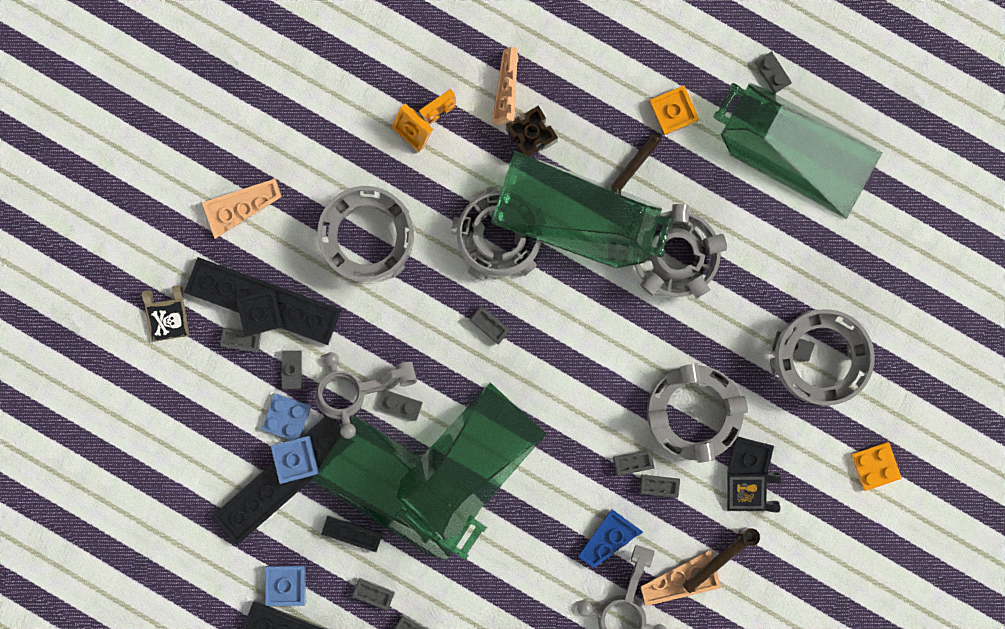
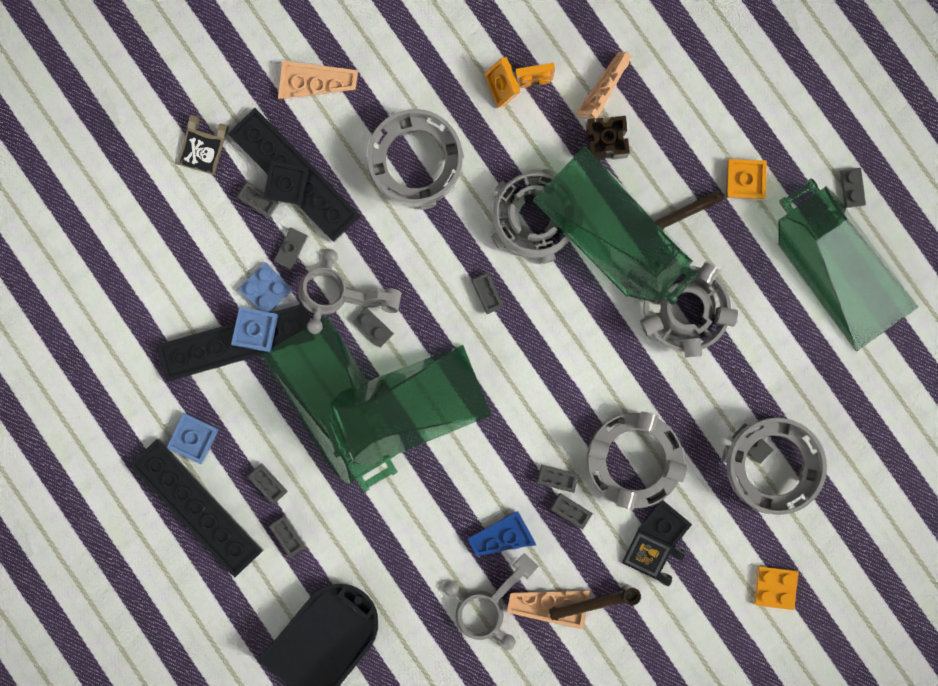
camera: 25 degrees right, 0 degrees up
(352, 533) = (274, 420): black plate -> none

